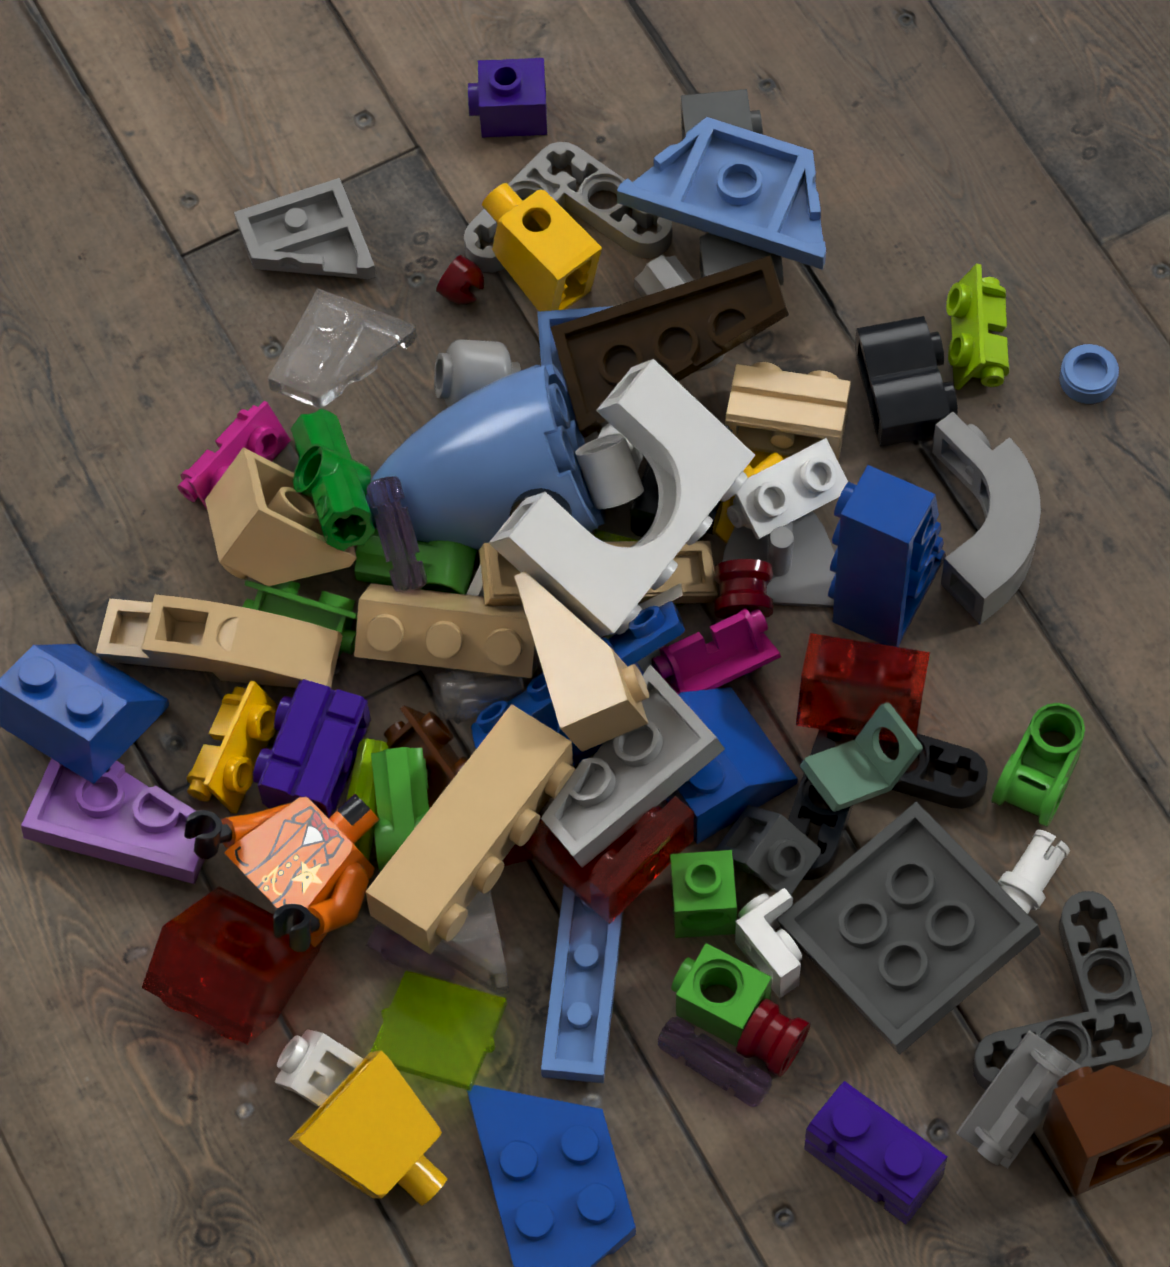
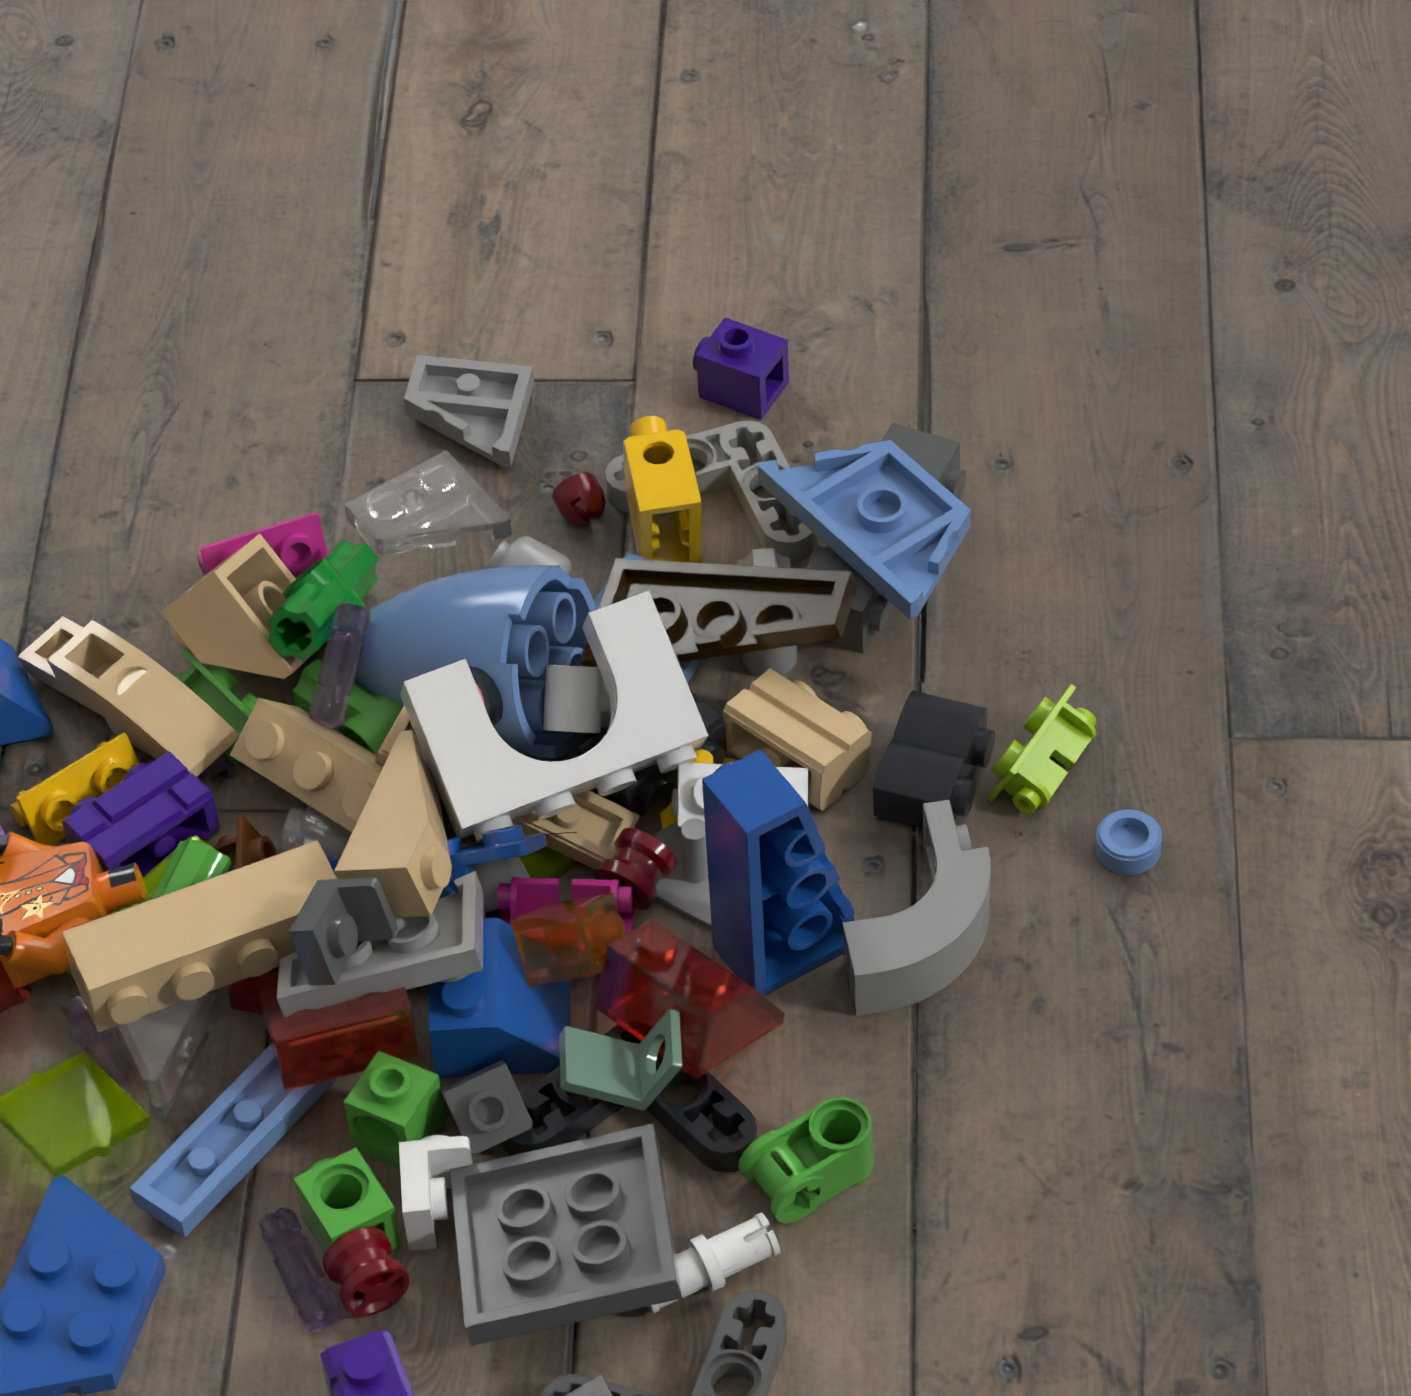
camera: 30 degrees right, 15 degrees down
(585, 766) = (335, 920): none -> dark grey bracket
(752, 680) = (567, 938): none -> clear orange brick

